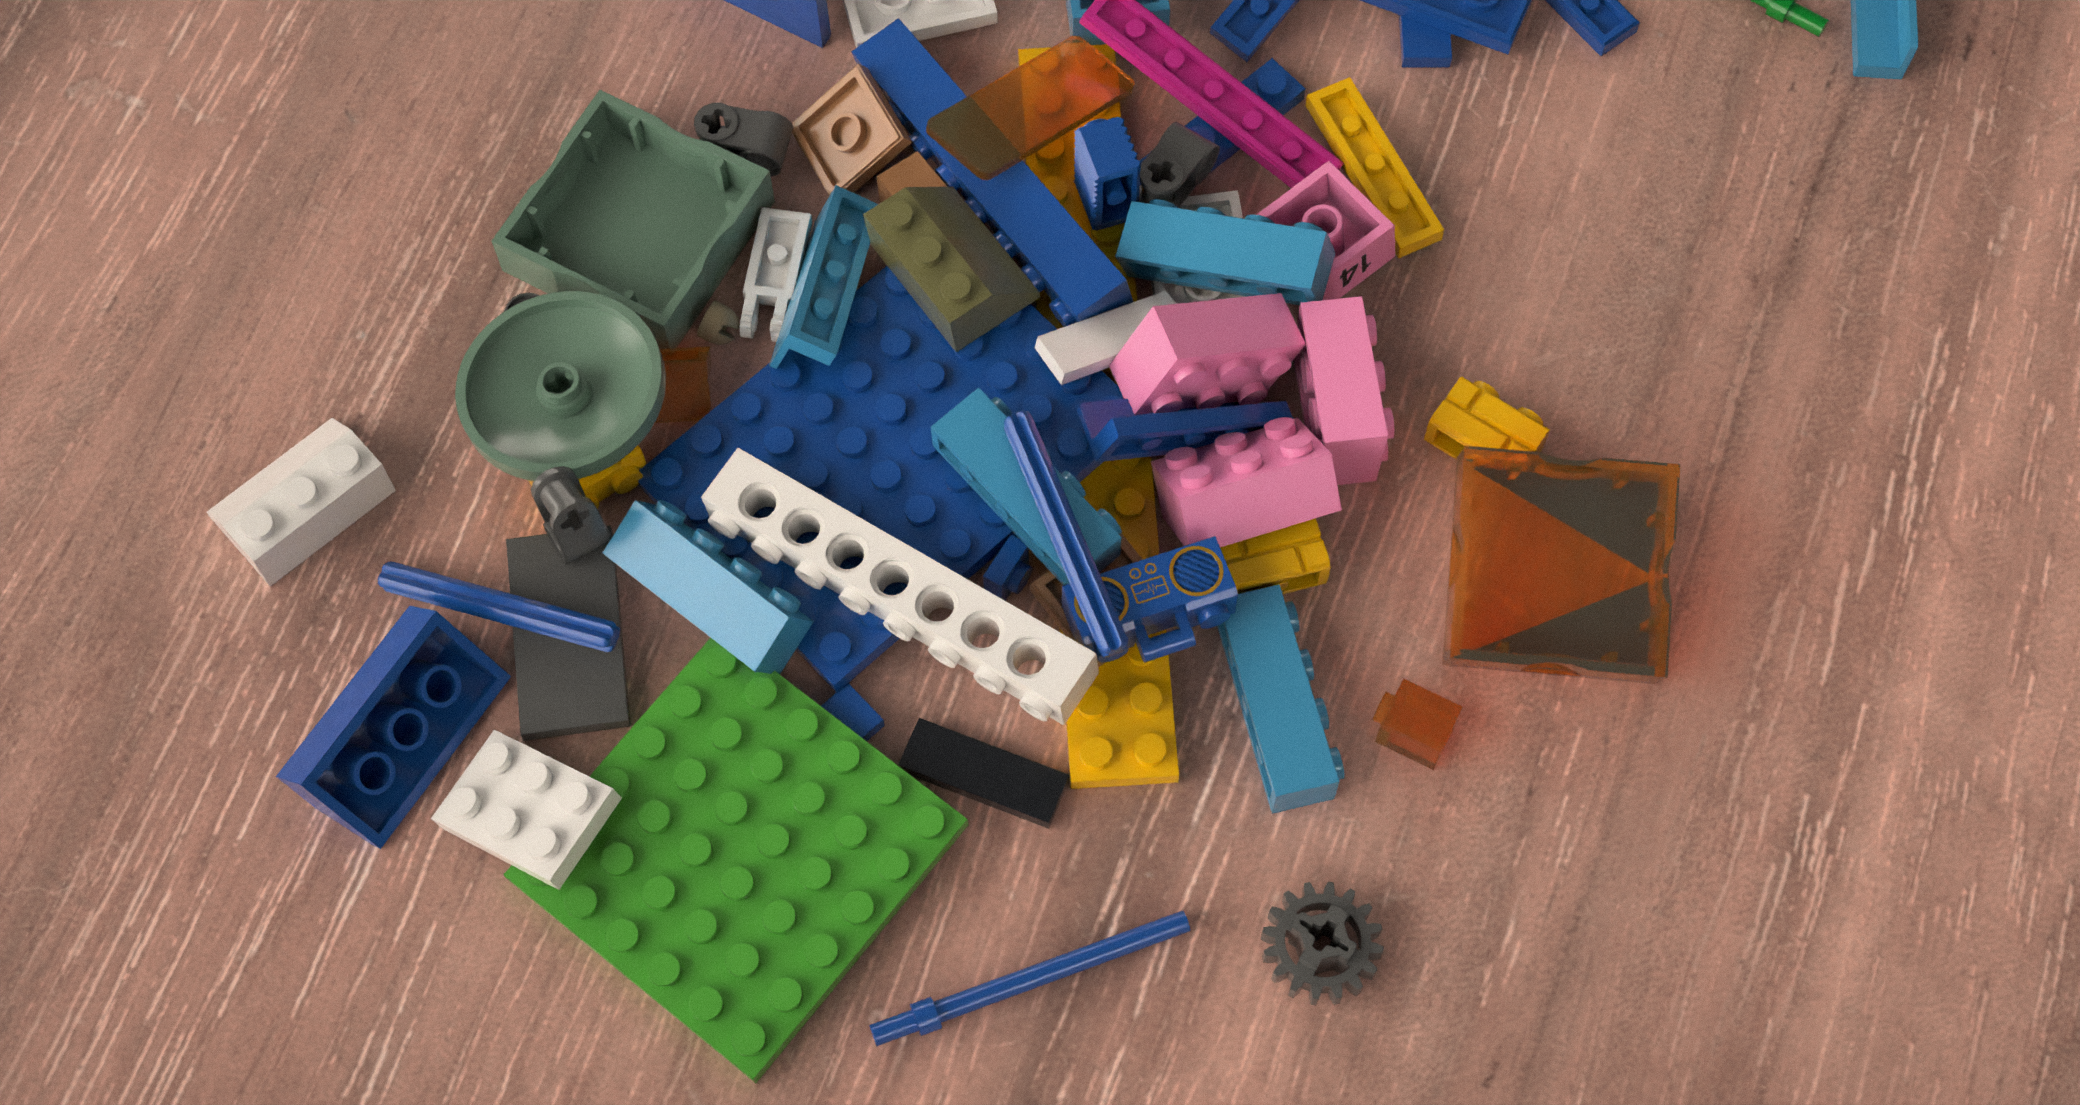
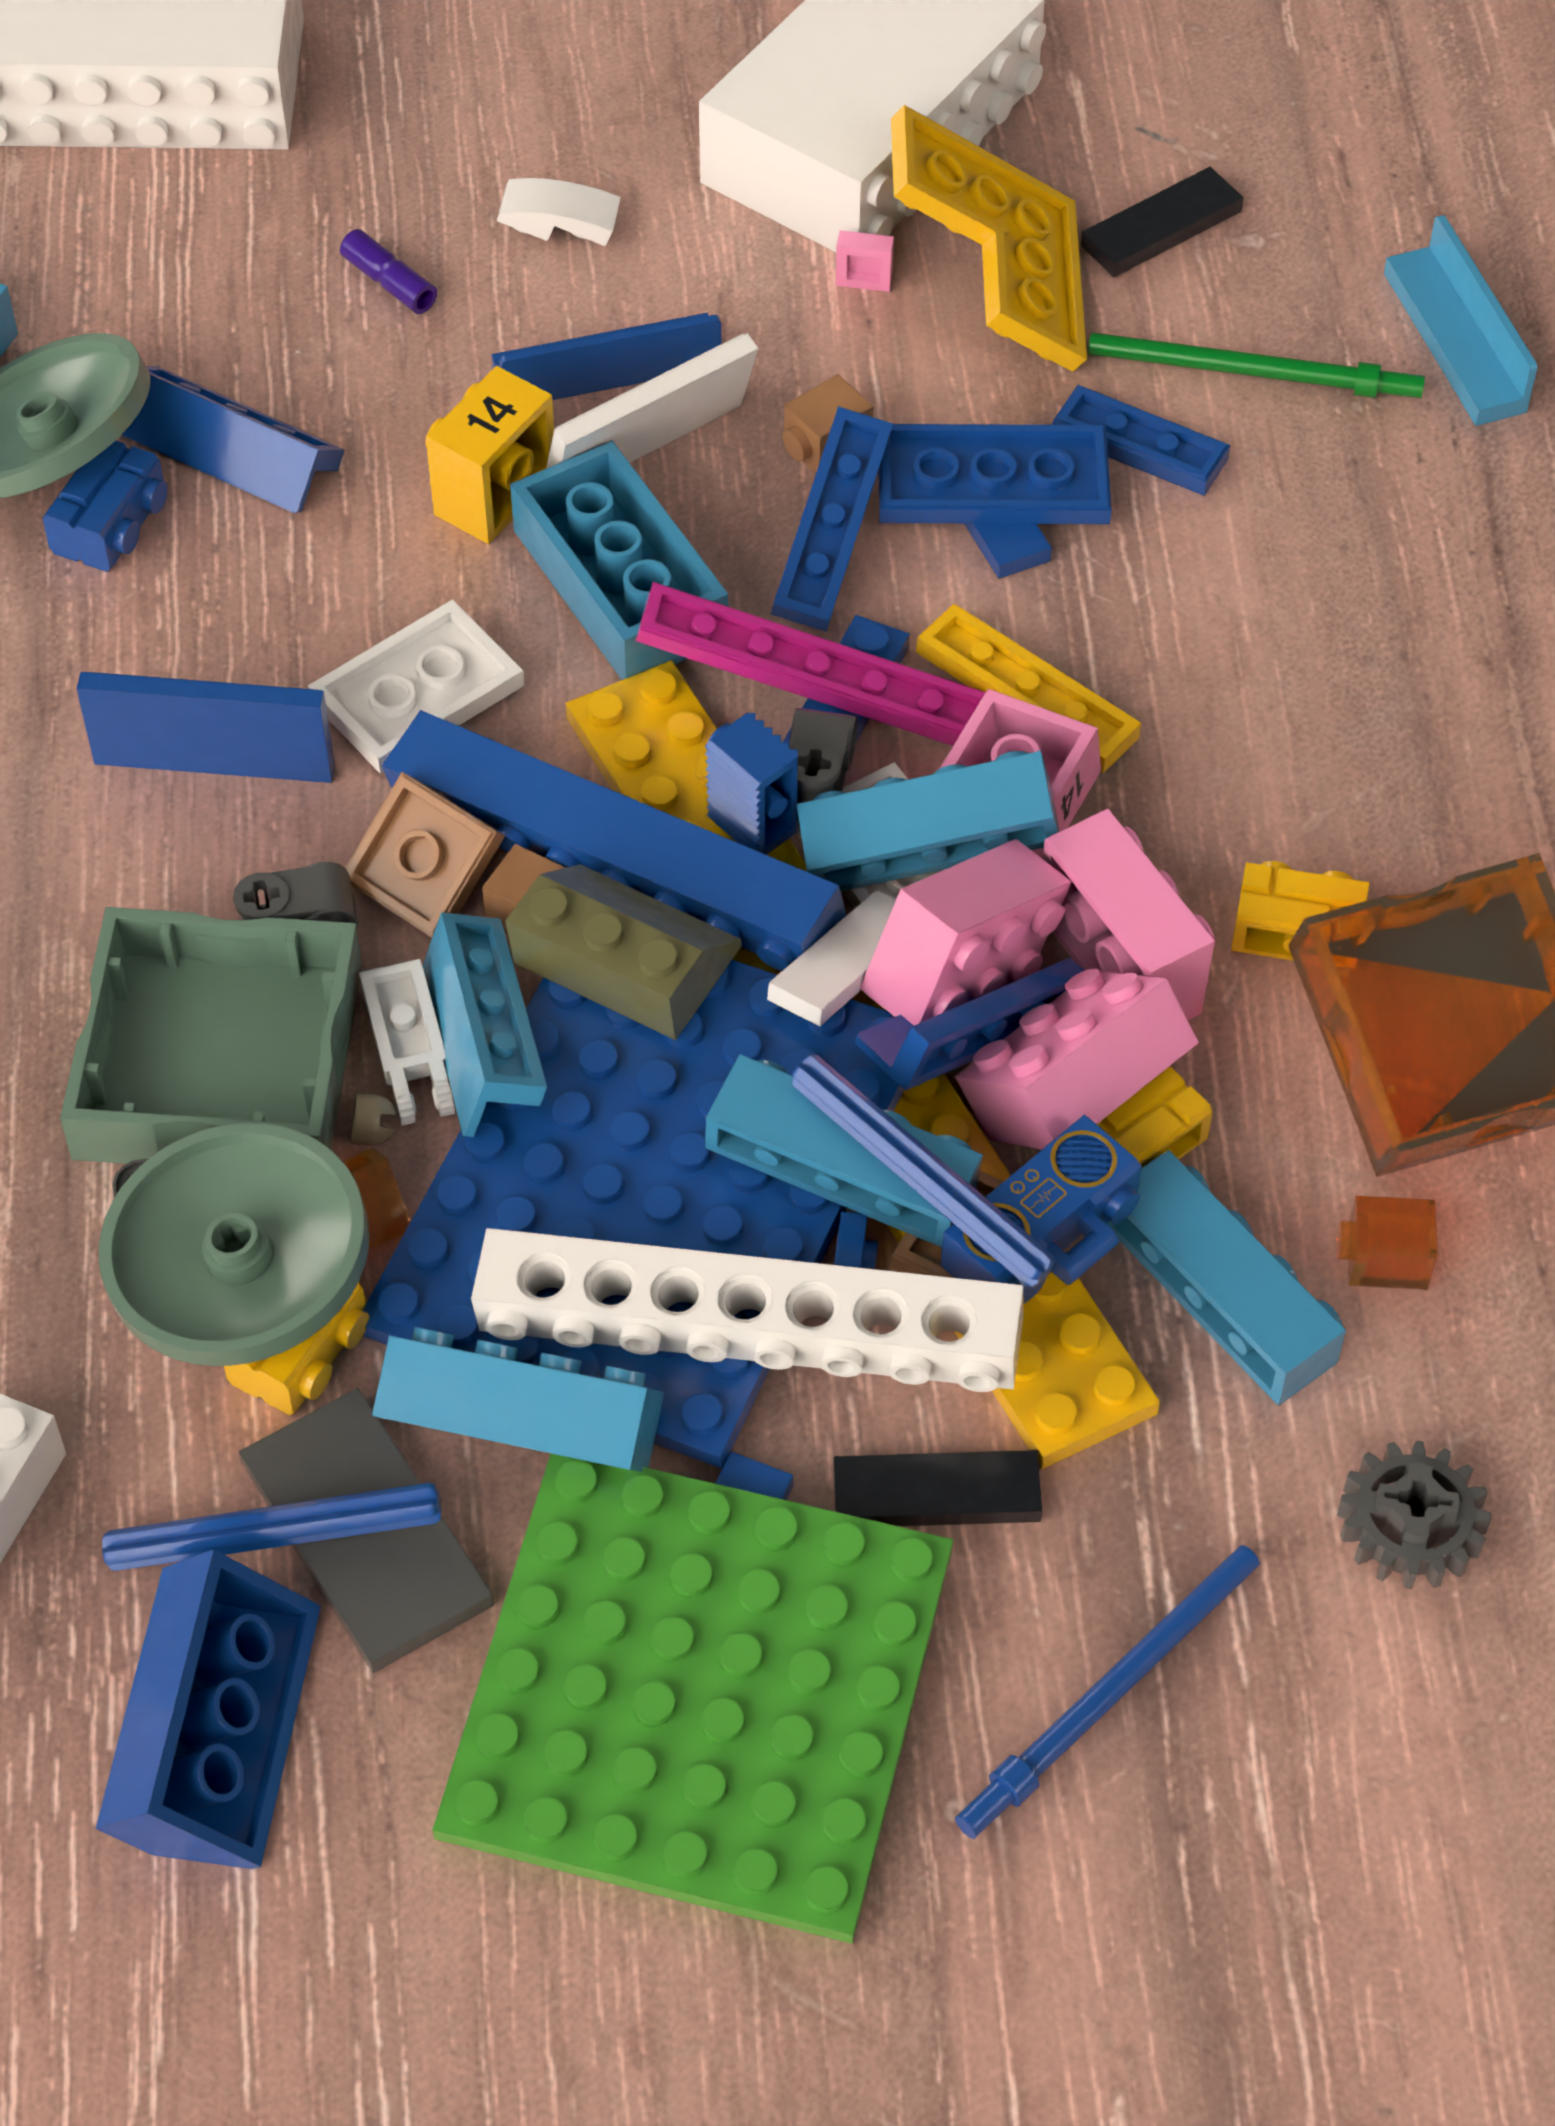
camera: 25 degrees left, 10 degrees down
(526, 809) = (426, 1740): white plate -> none
(568, 514) = (316, 1385): dark grey piece -> none
(1029, 107) = (624, 750): clear orange piece -> none

